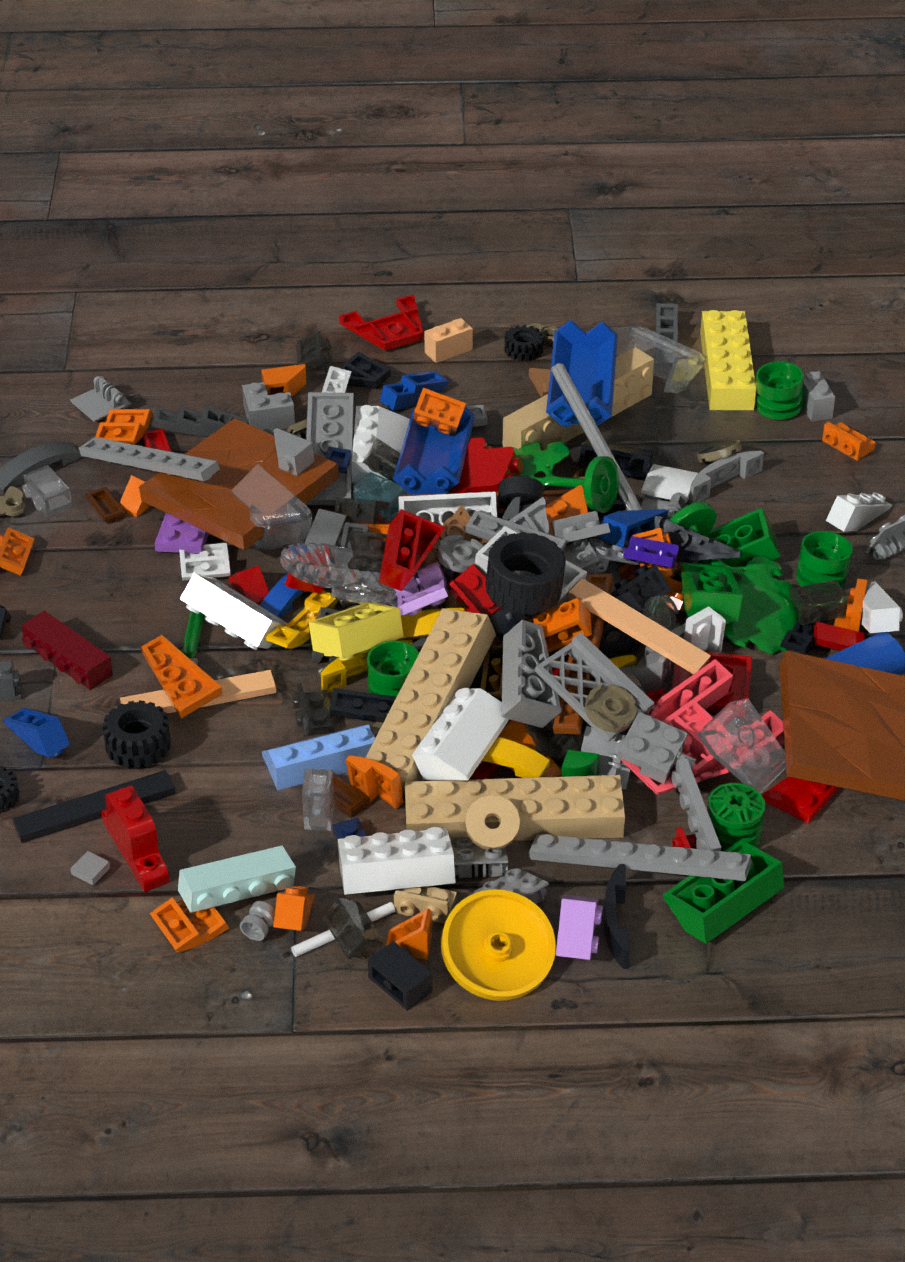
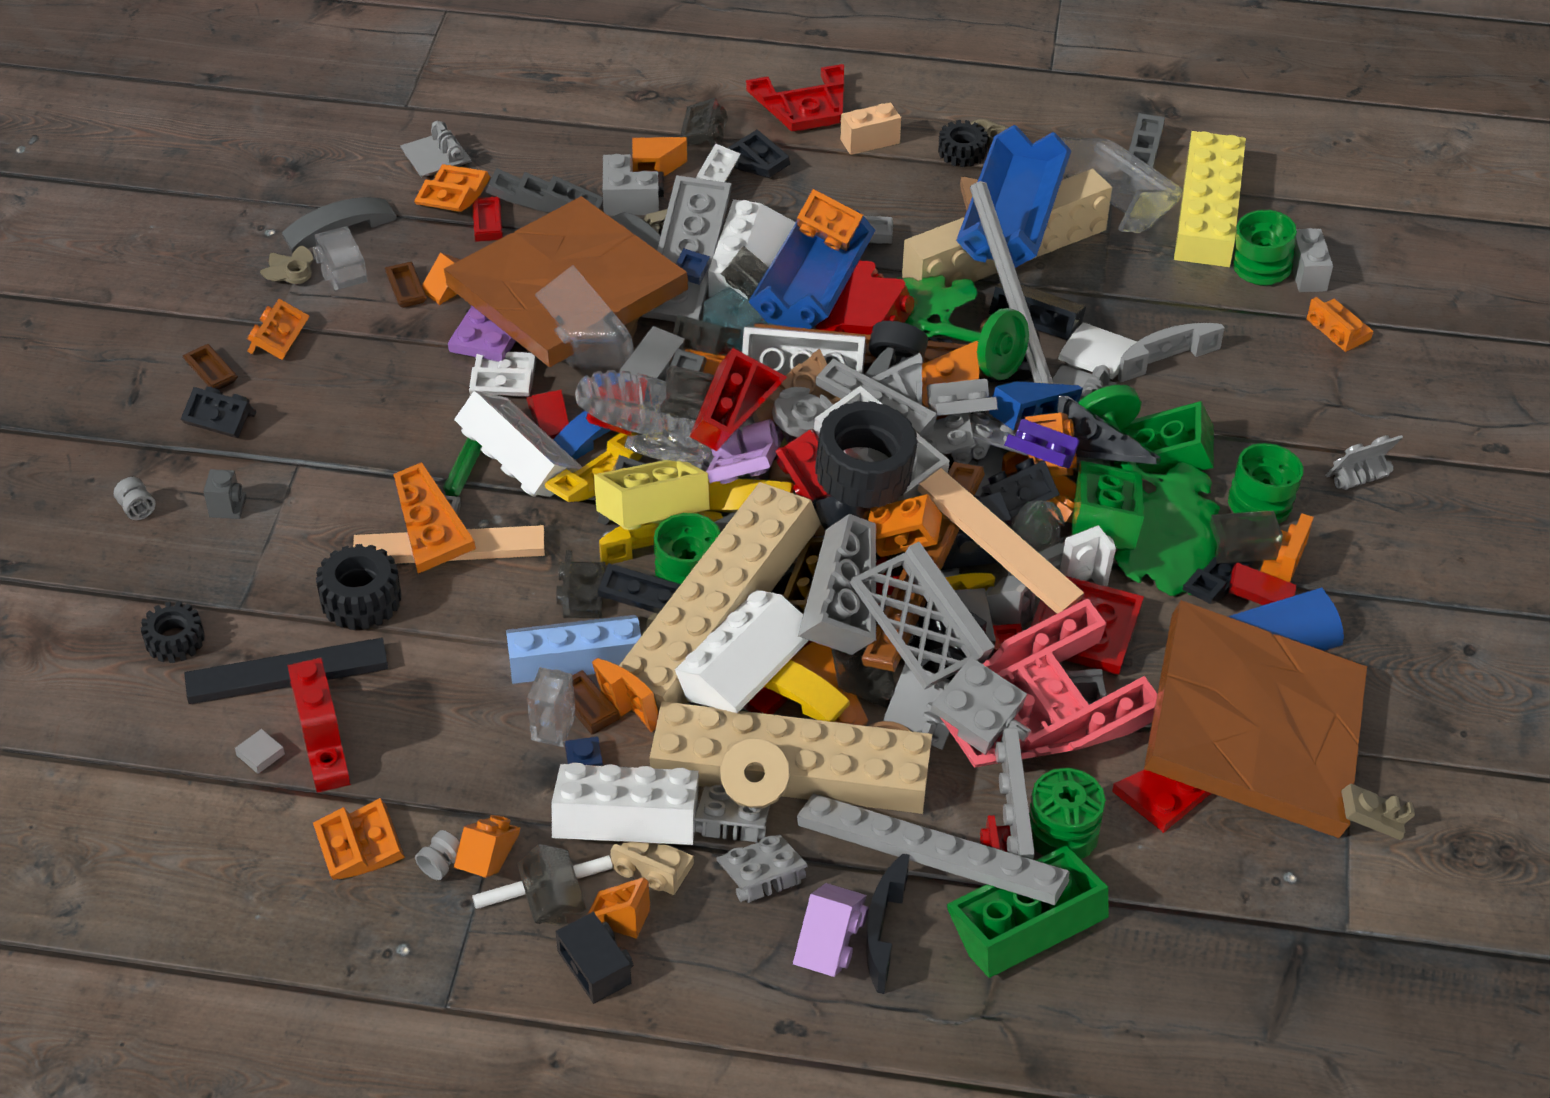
camera: 10 degrees right, 5 degrees up
(39, 731) = (245, 565): blue slope -> none
(67, 650) = (307, 465): dark red brick -> none
(150, 459) = (466, 235): light grey plate -> none
(236, 878) = (425, 796): light aqua brick -> none
(293, 452) = (634, 251): light grey slope -> none
(407, 393) = (793, 191): blue slope -> none
(498, 945) = (723, 938): yellow dish -> none
(580, 764) = (888, 712): green brick -> none
(611, 708) = (936, 646): dark tan tile -> none
(719, 451) = (1169, 317): dark tan tile -> none
(744, 744) = (1098, 720): clear slope -> none
(855, 511) = (1323, 420): white slope -> none
(880, 611) = (1320, 560): white slope -> none

